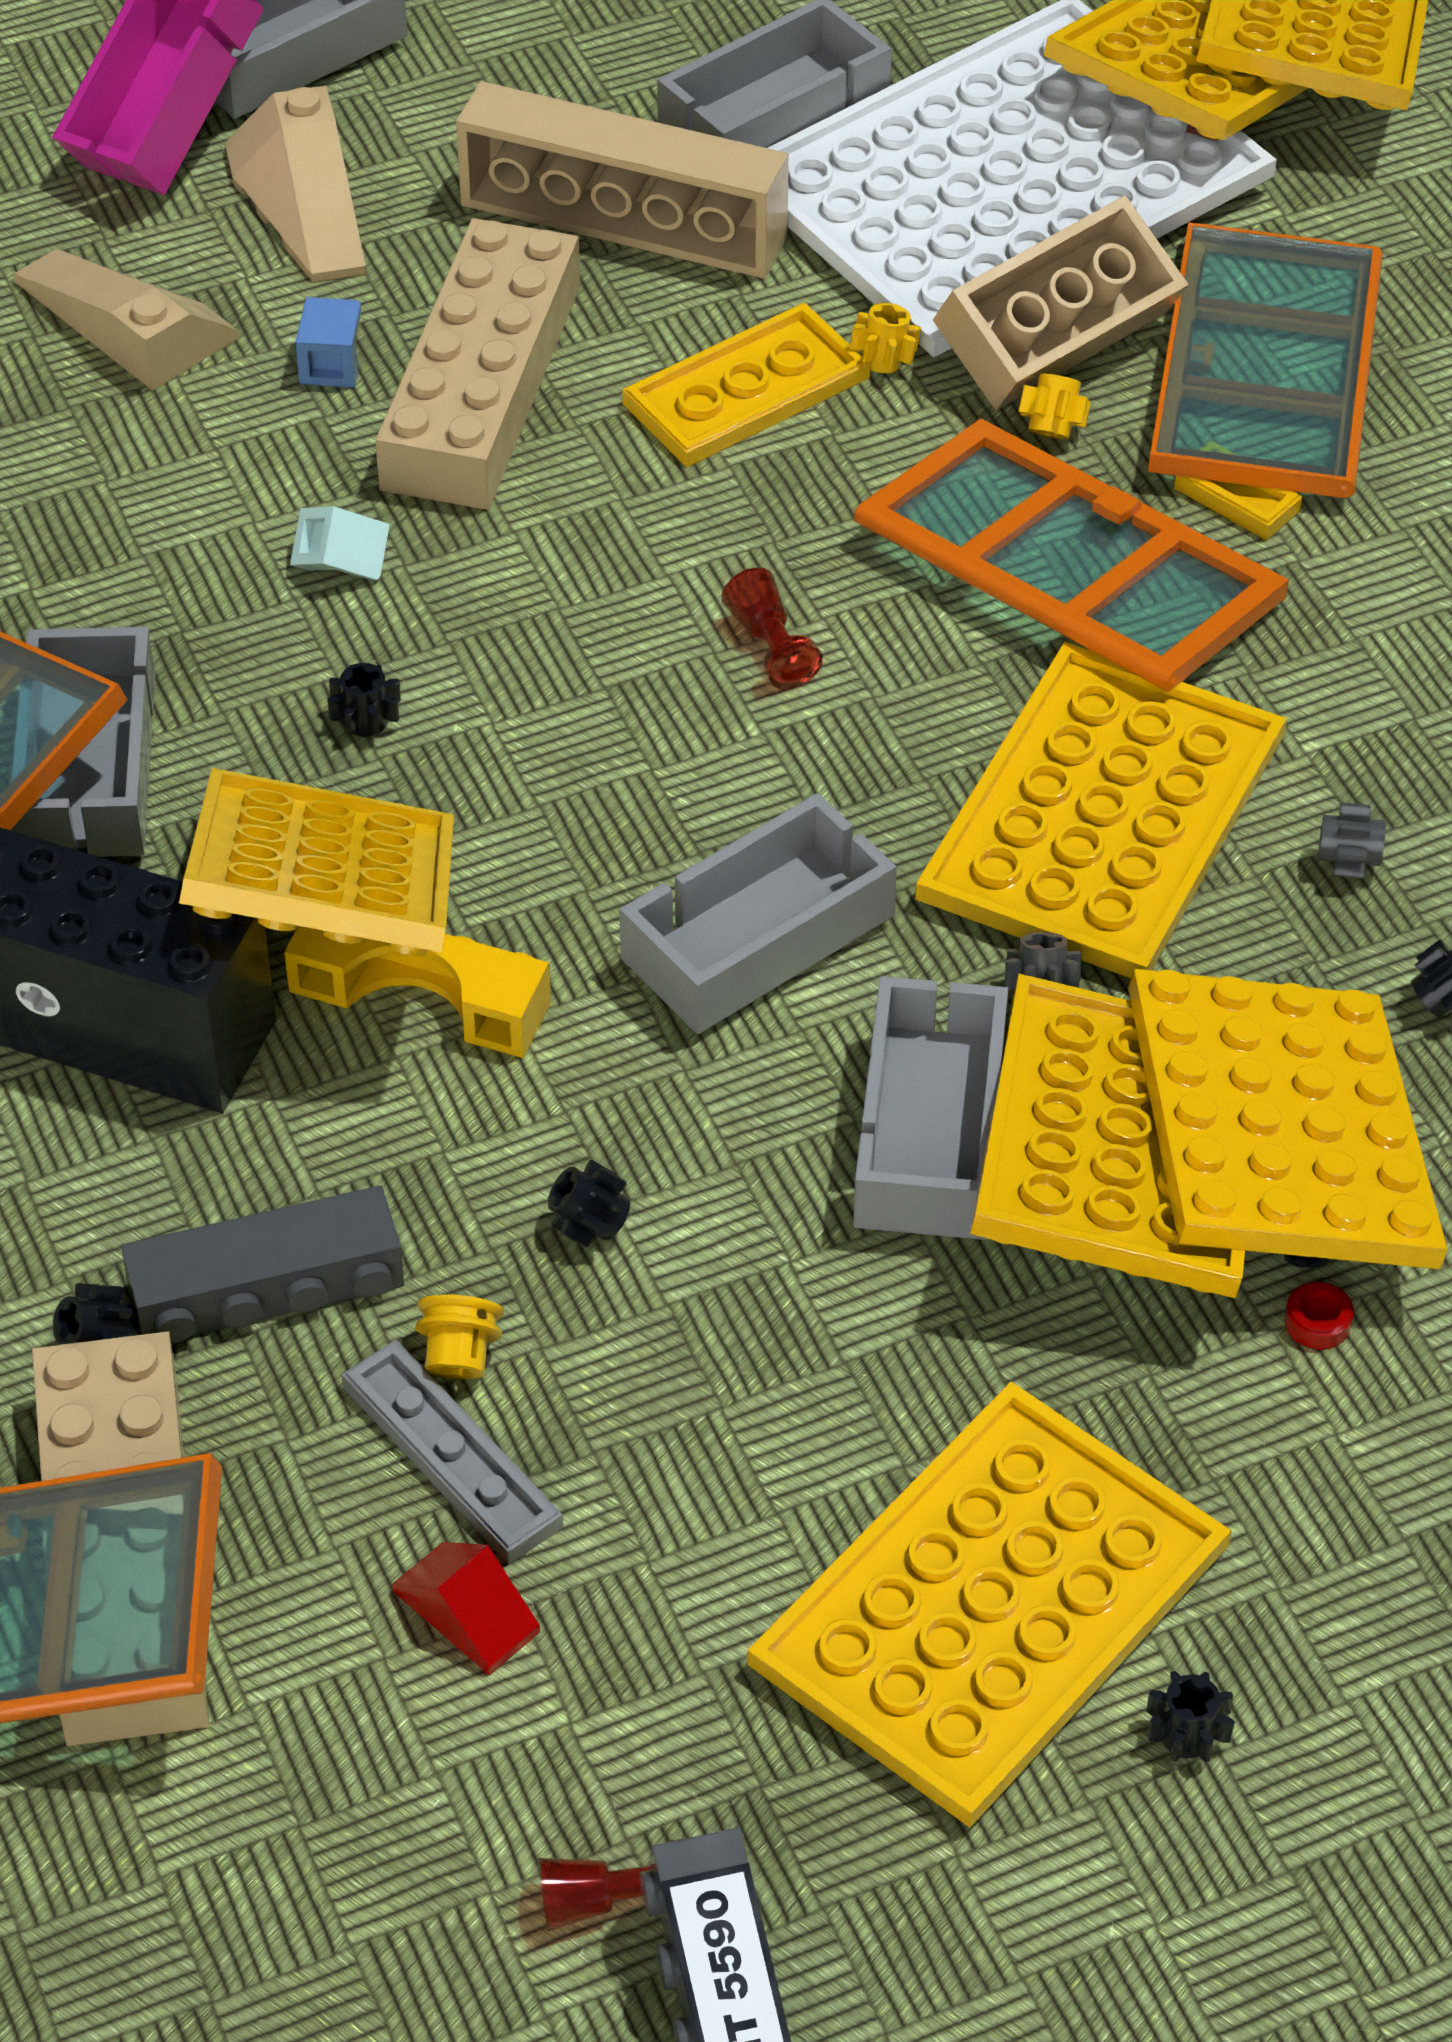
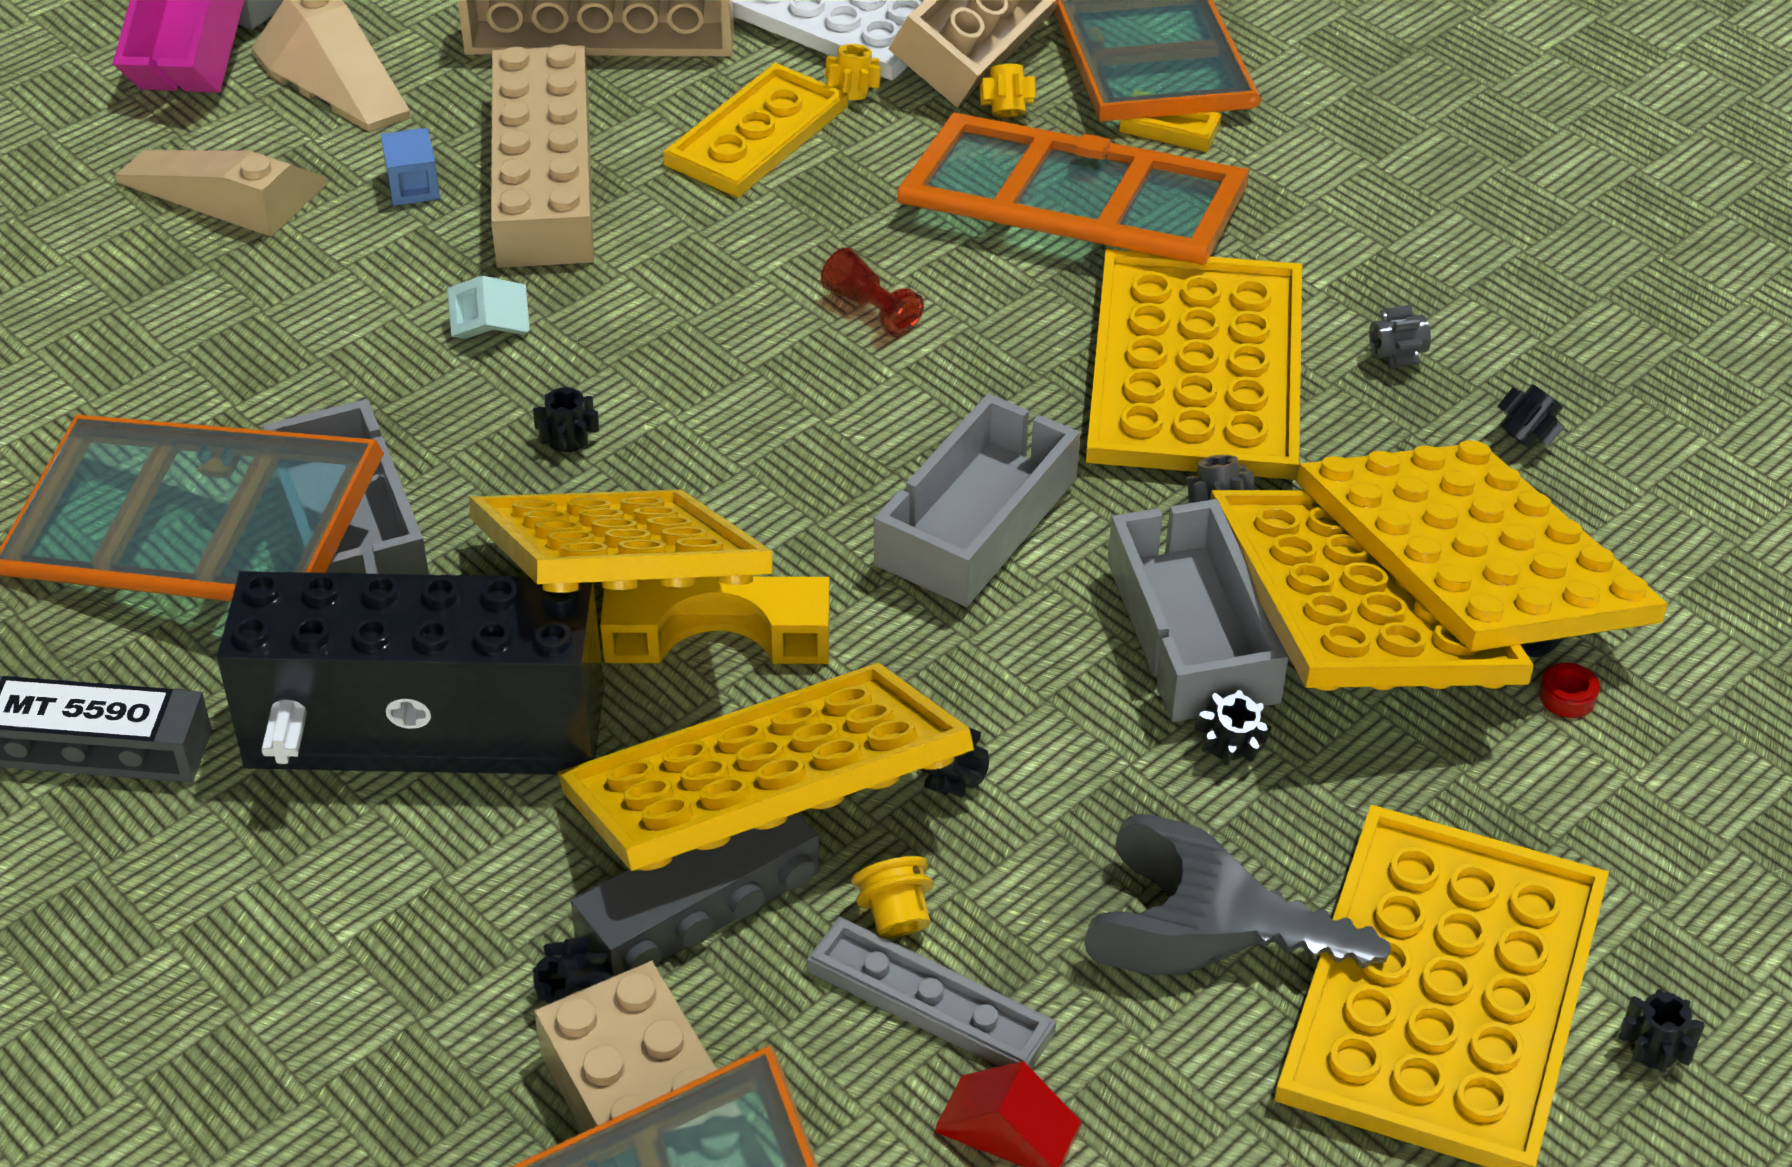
camera: 20 degrees left, 5 degrees down
(375, 1154) = (762, 765): none -> yellow plate
(776, 1448) = (1210, 909): none -> dark grey animal
(895, 1241) = (1233, 727): none -> black gear

